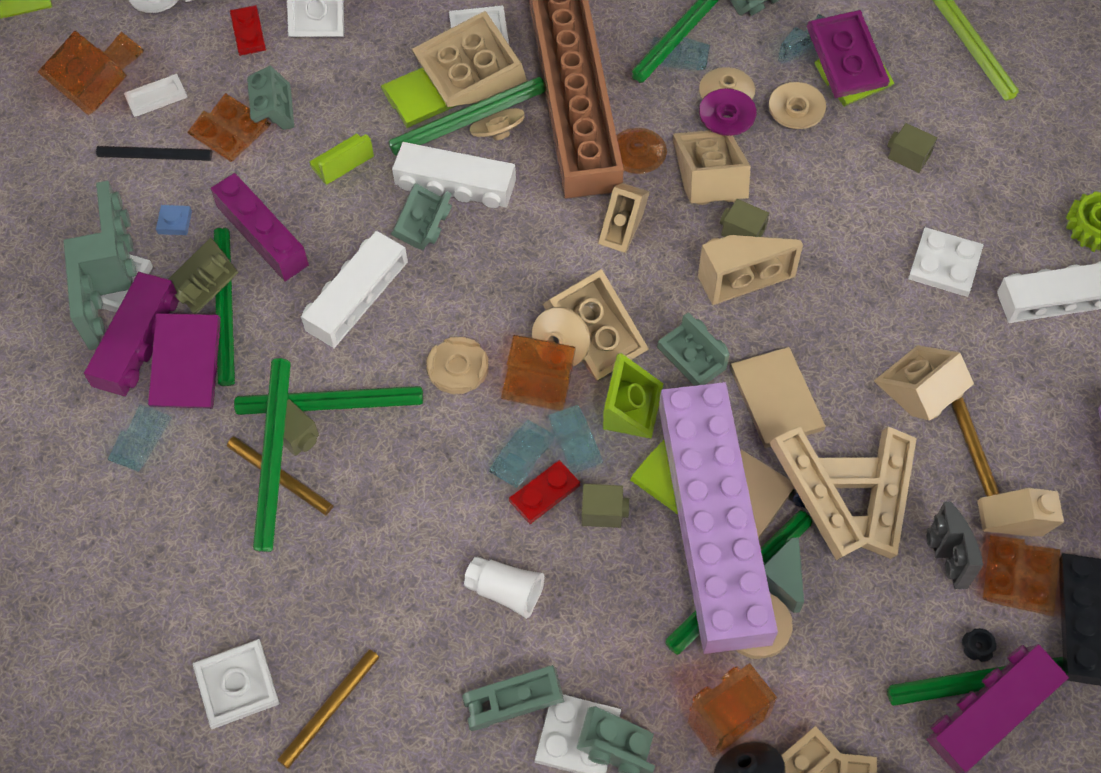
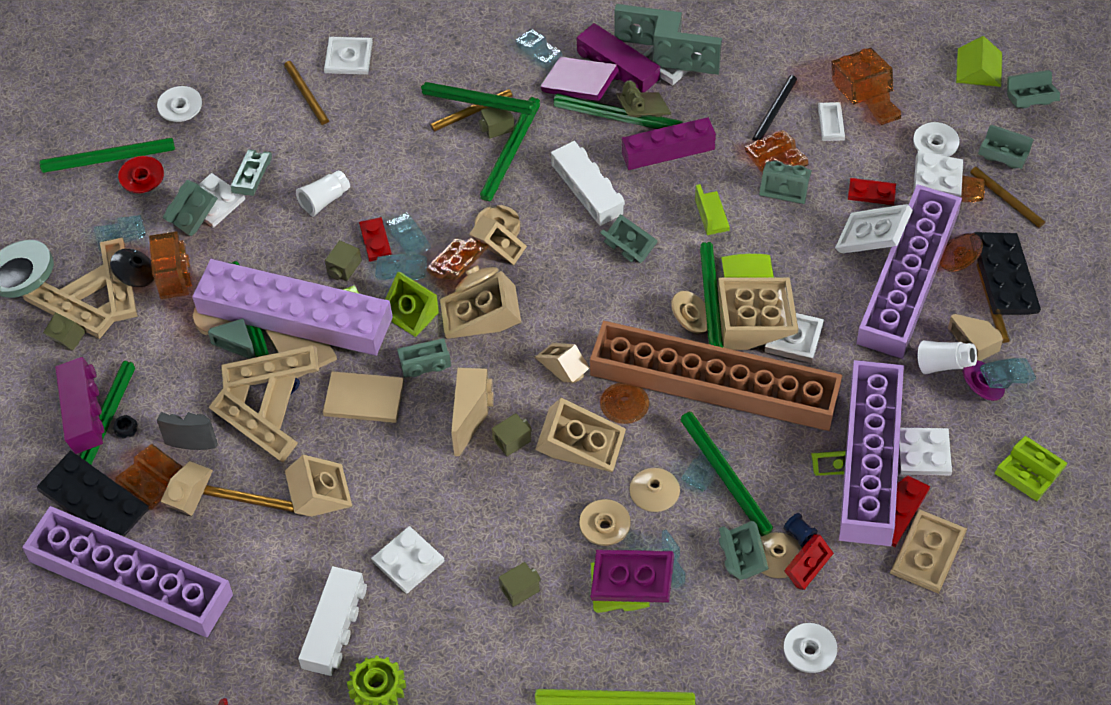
camera: 115 degrees right, 5 degrees down
(174, 220) = (706, 104): medium blue plate -> none
(458, 173) = (655, 270): white brick -> none
(491, 343) = (499, 239): none -> tan slope
(731, 103) = (623, 460): magenta dish -> none

